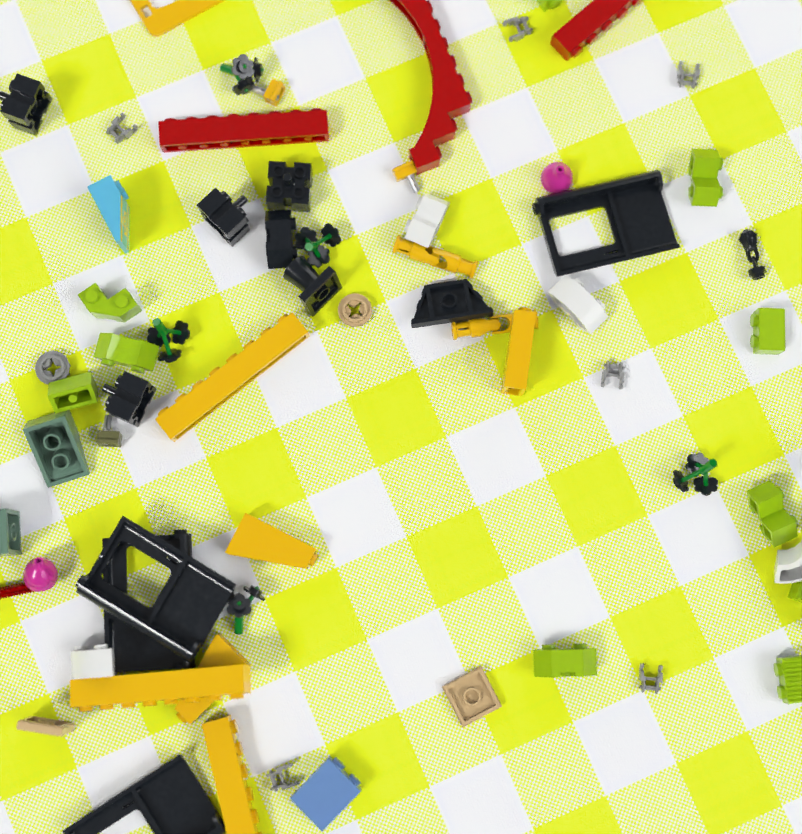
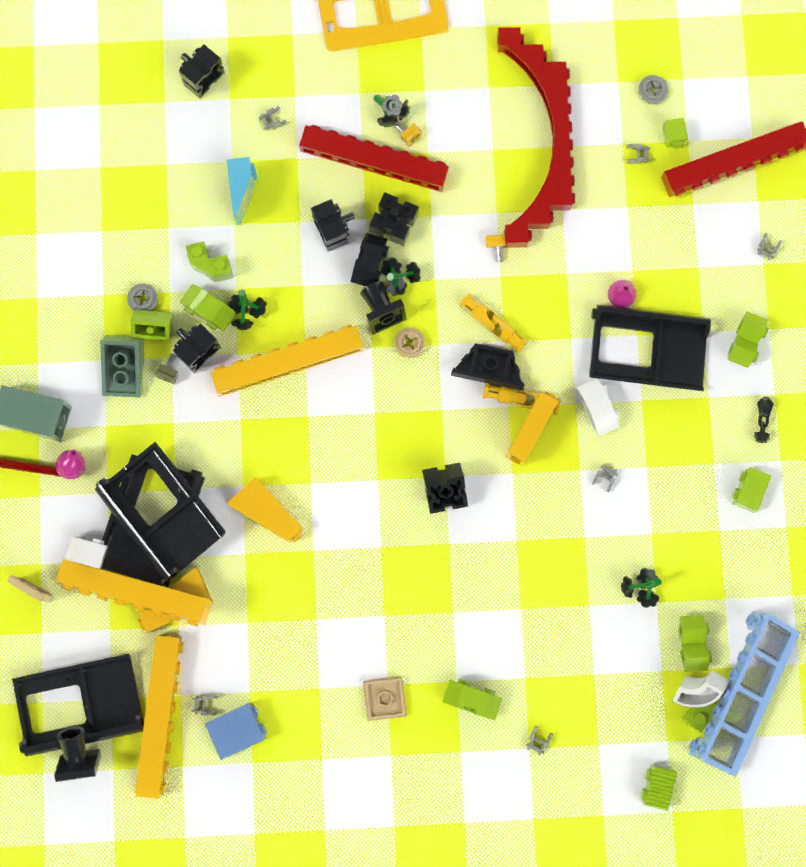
camera: 20 degrees right, 0 degrees up
(240, 606) = (223, 552): black plant -> none
(426, 219) = (498, 289): white brick -> none
(451, 448) = (445, 488): none -> black brick

